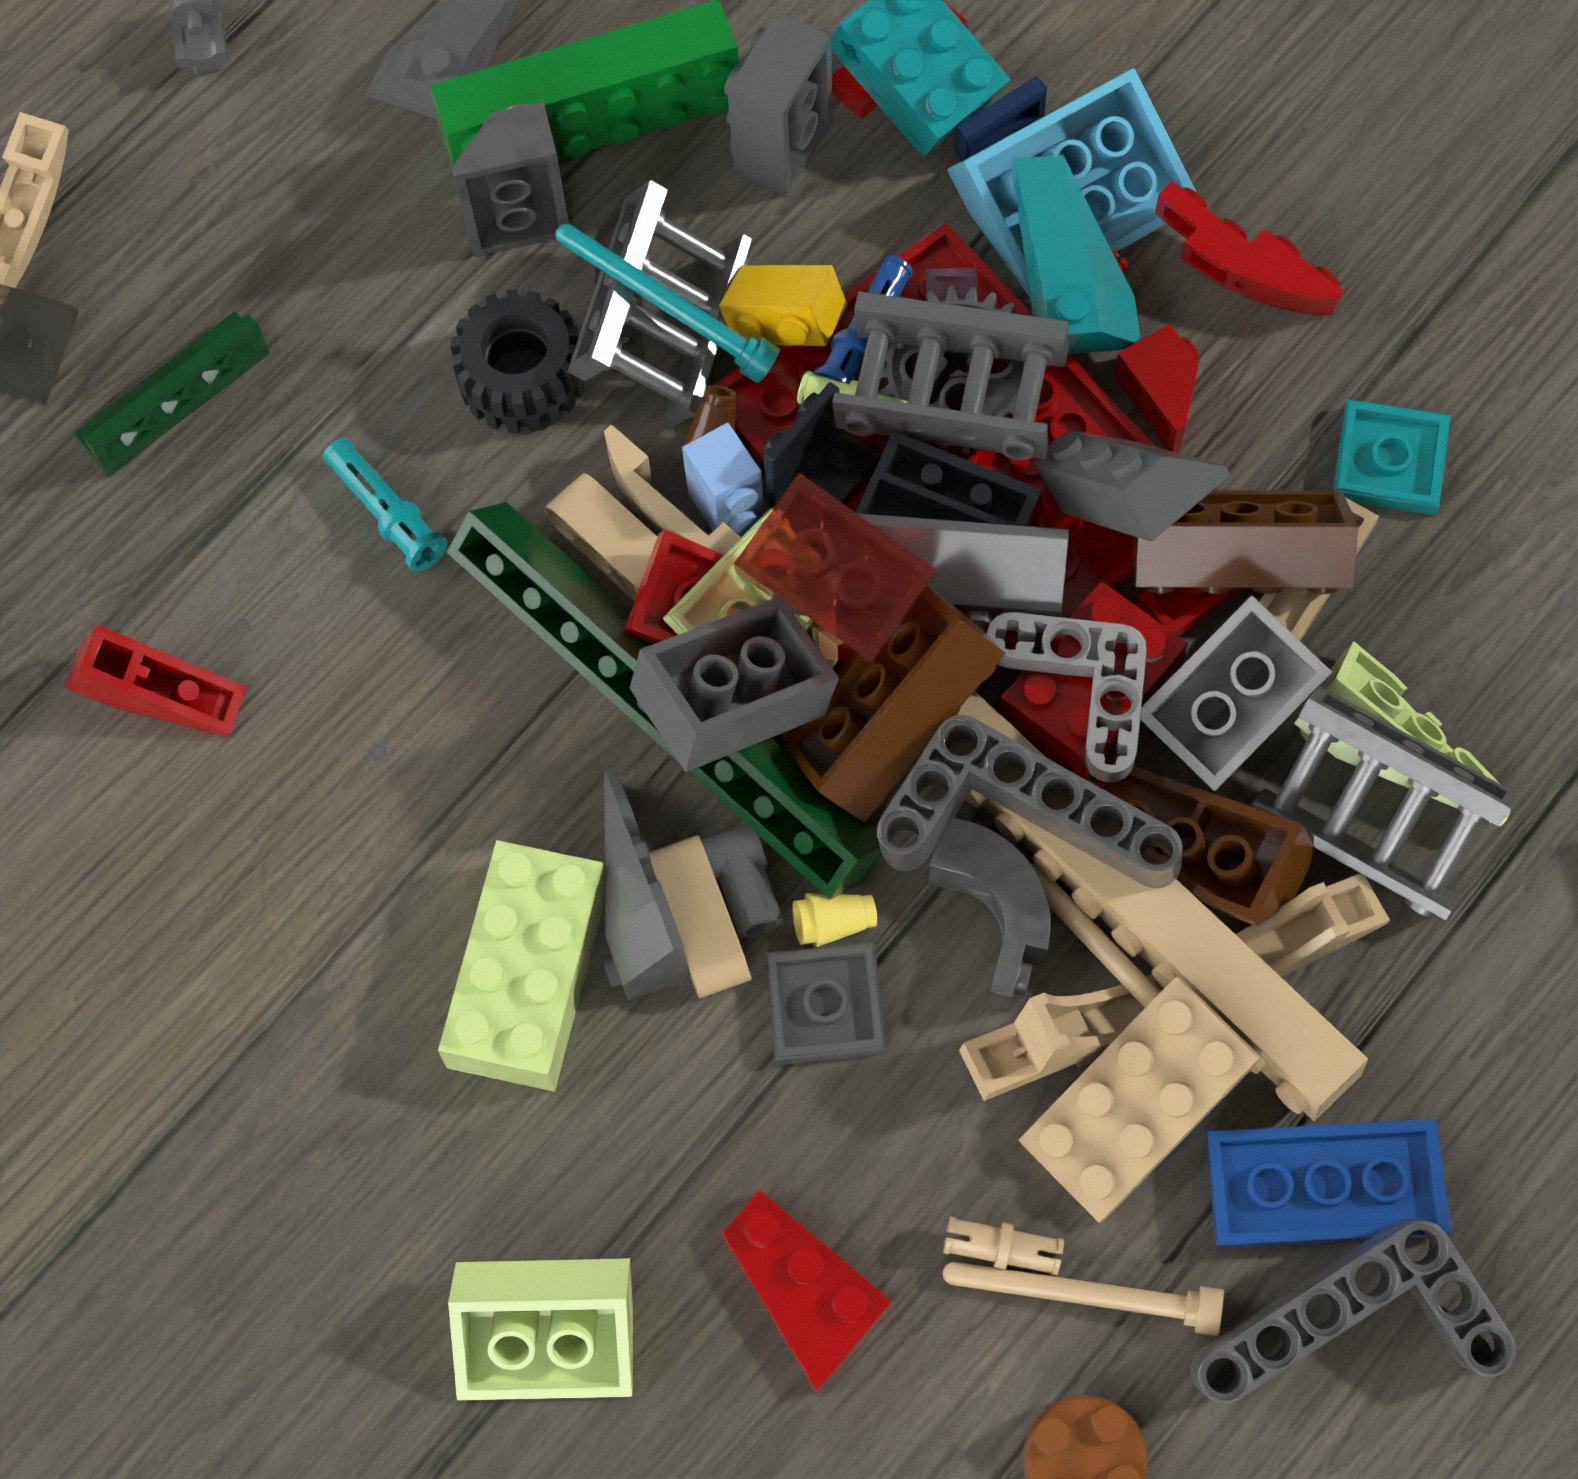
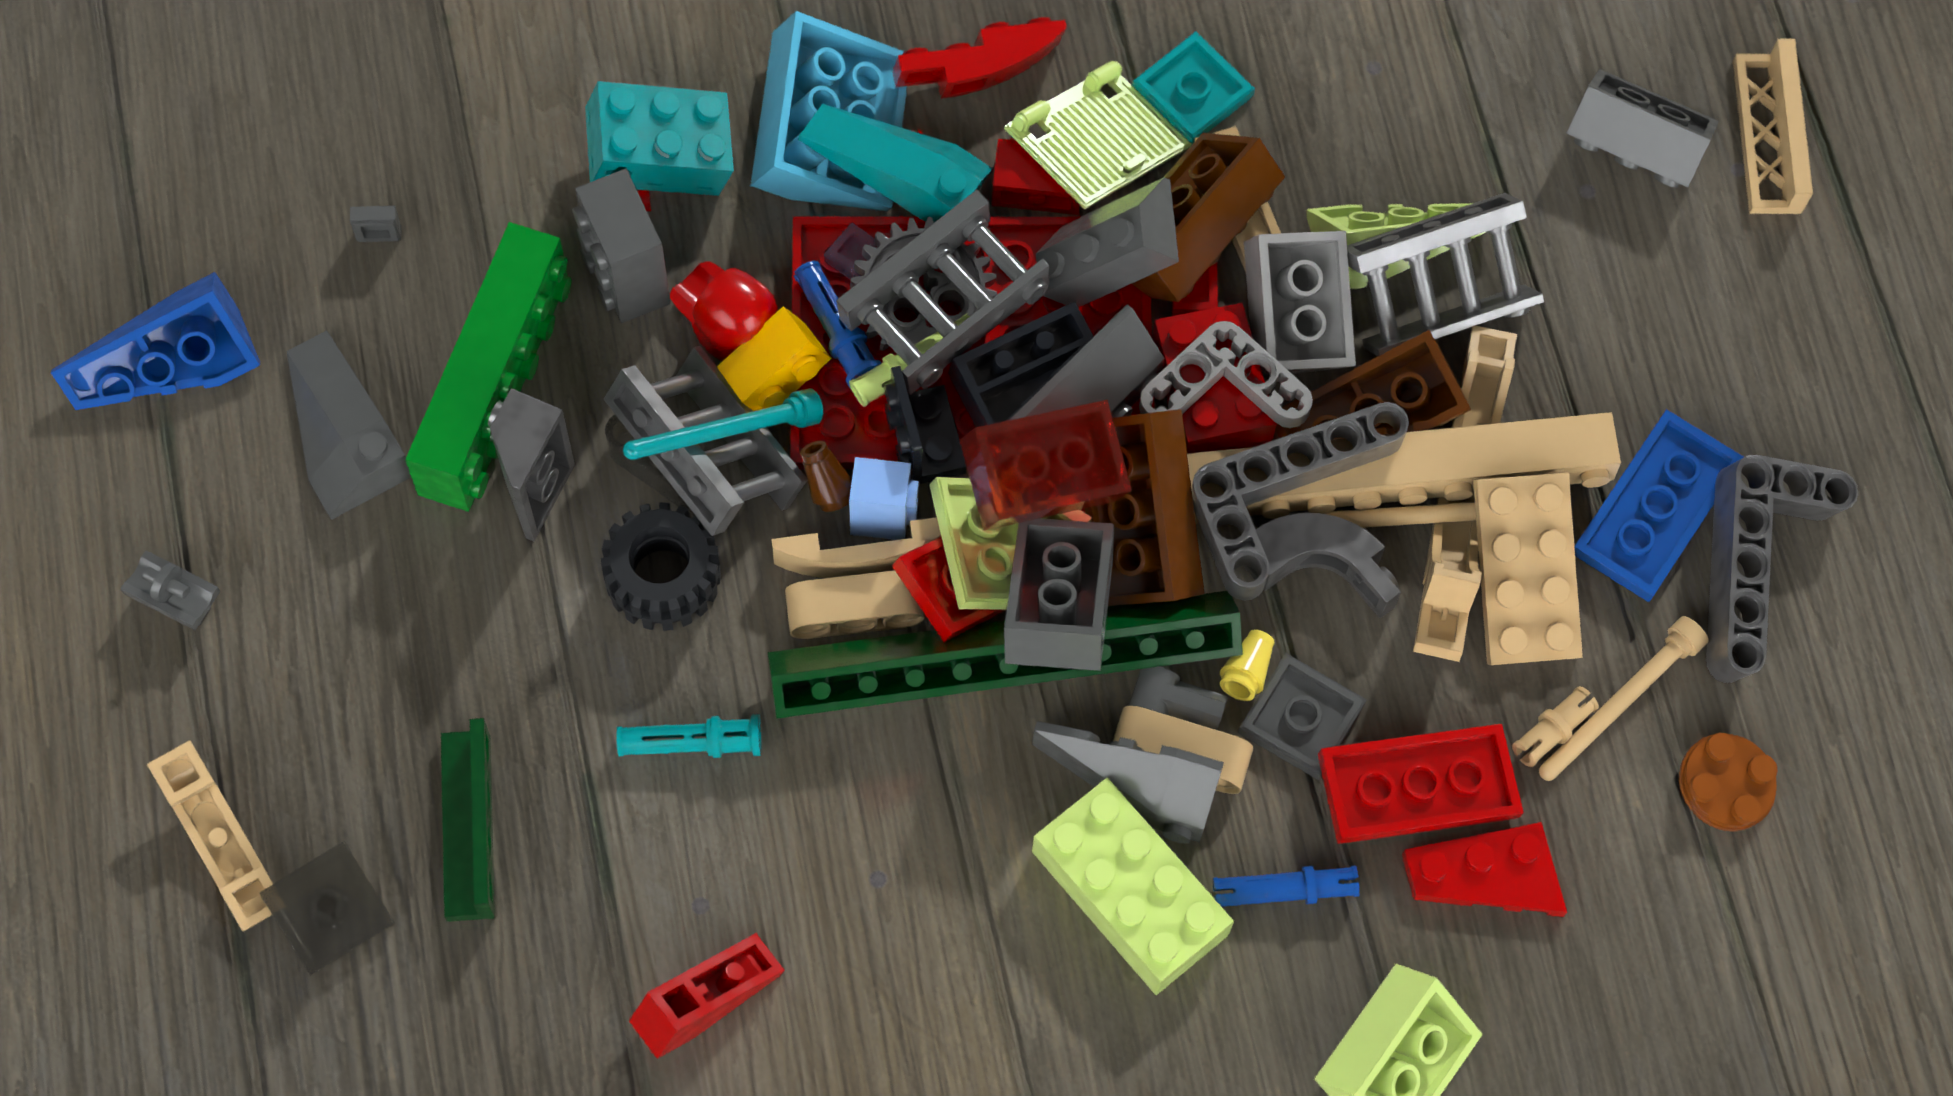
camera: 60 degrees left, 0 degrees up
(652, 1124) = (1286, 886): none -> blue pin
(809, 229) = (723, 306): none -> red piece
(836, 1156) = (1420, 783): none -> red plate
(1001, 118) = (743, 124): dark blue tile -> none
(1255, 406) = (1097, 141): none -> yellowish green window

